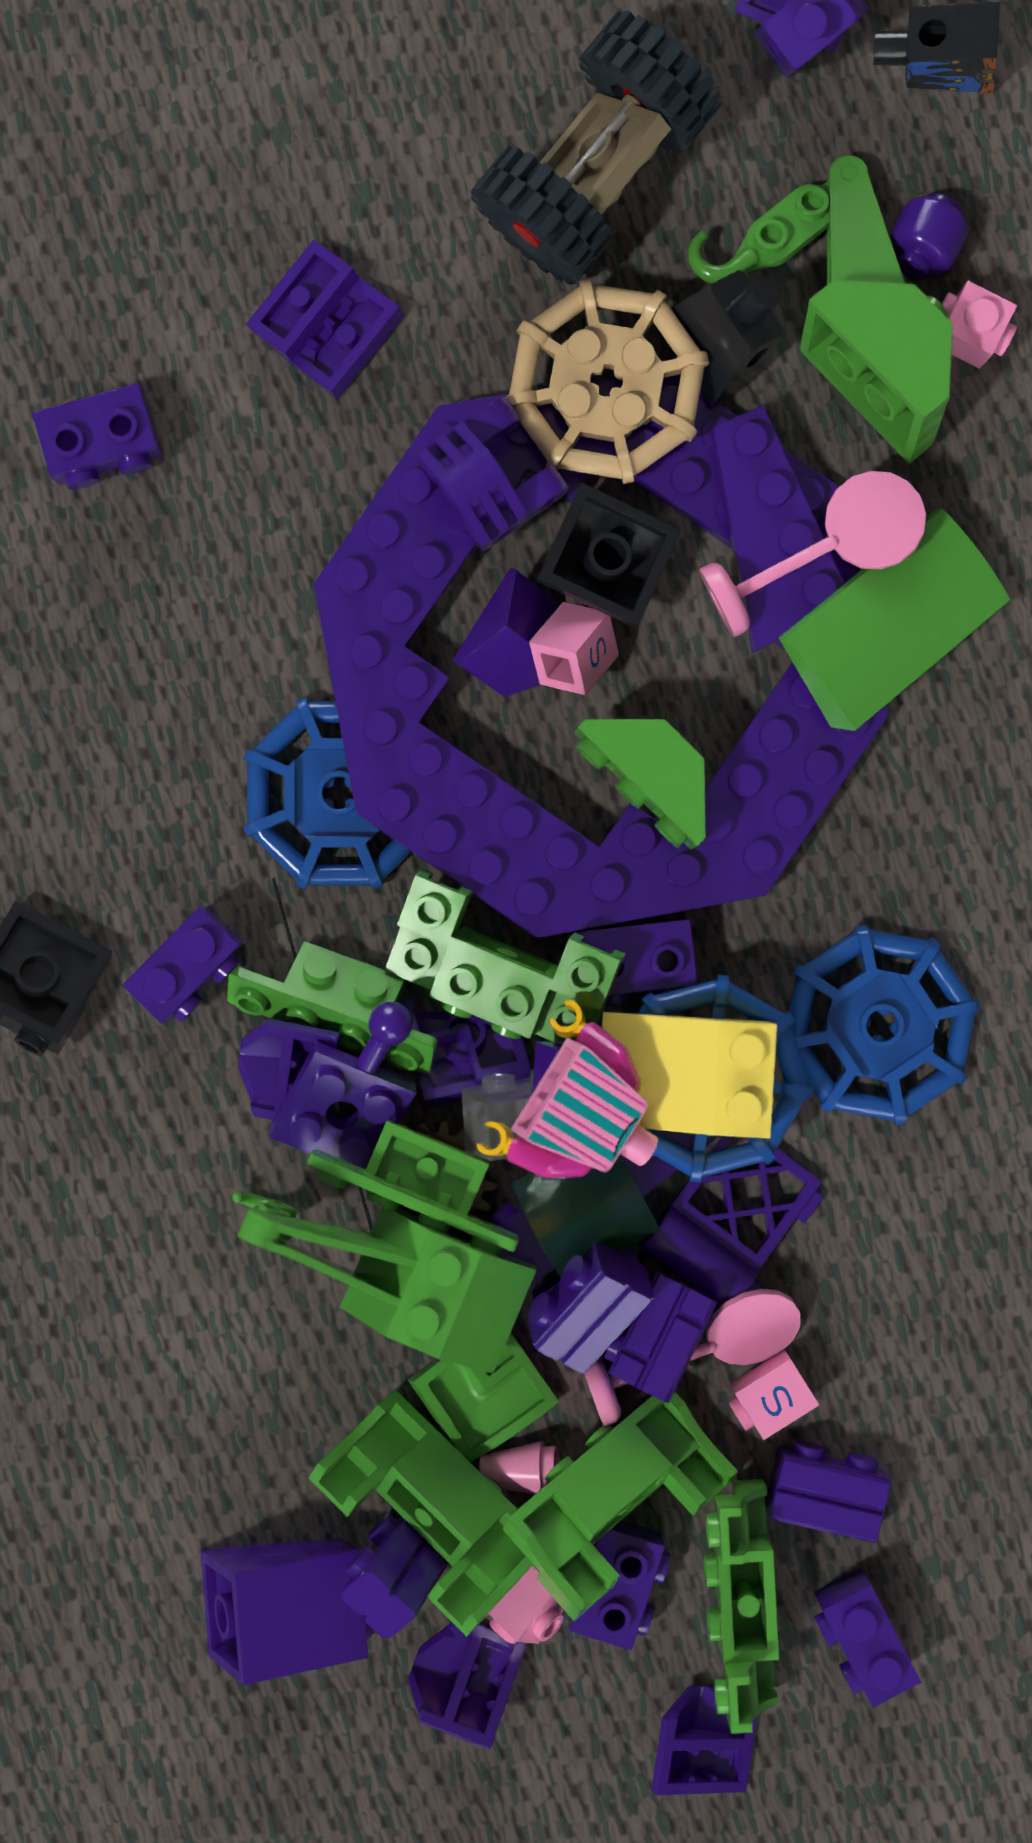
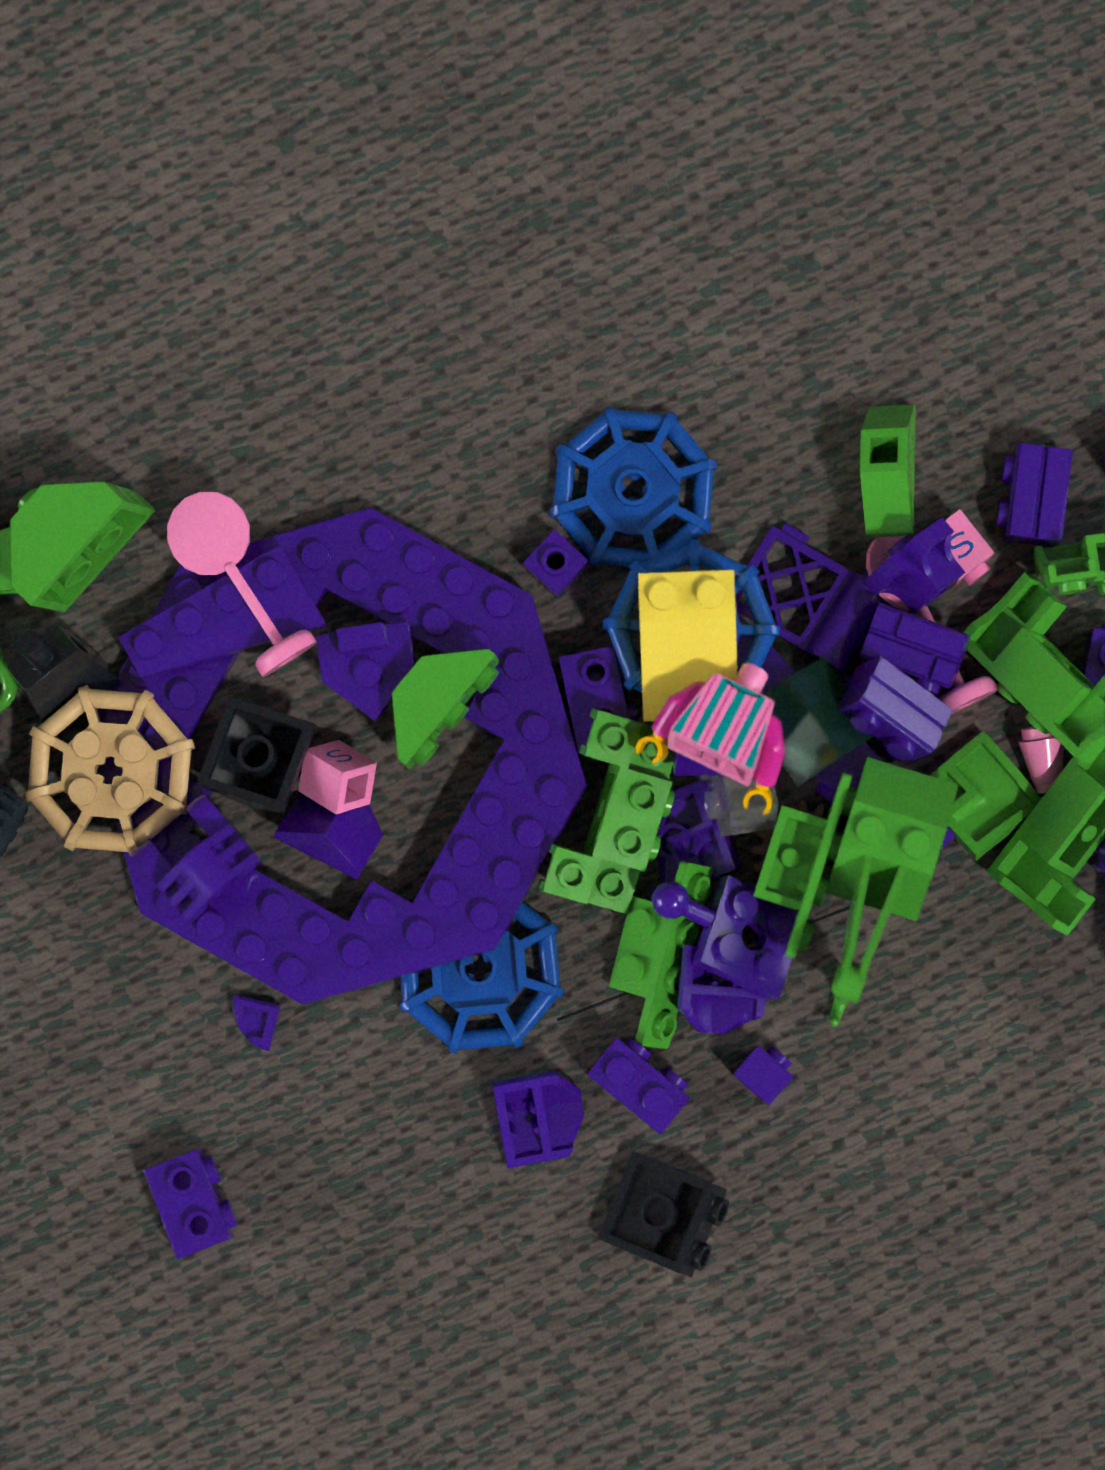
camera: 85 degrees left, 5 degrees down
(160, 845) = (537, 1117): none -> dark purple slope
(186, 1110) = (764, 1073): none -> dark purple plate
(303, 531) = (256, 1020): none -> dark purple tile
(325, 319) = (73, 1018): dark purple slope -> none
(703, 694) = (366, 663): none -> dark purple plate
(754, 1351) = (918, 567): none -> dark purple brick
(780, 926) = (555, 580): none -> dark purple plate
(872, 1325) = (888, 470): none -> bright green slope
(893, 624) = (293, 509): bright green slope -> none
(979, 323) = (32, 463): bright pink brick -> none

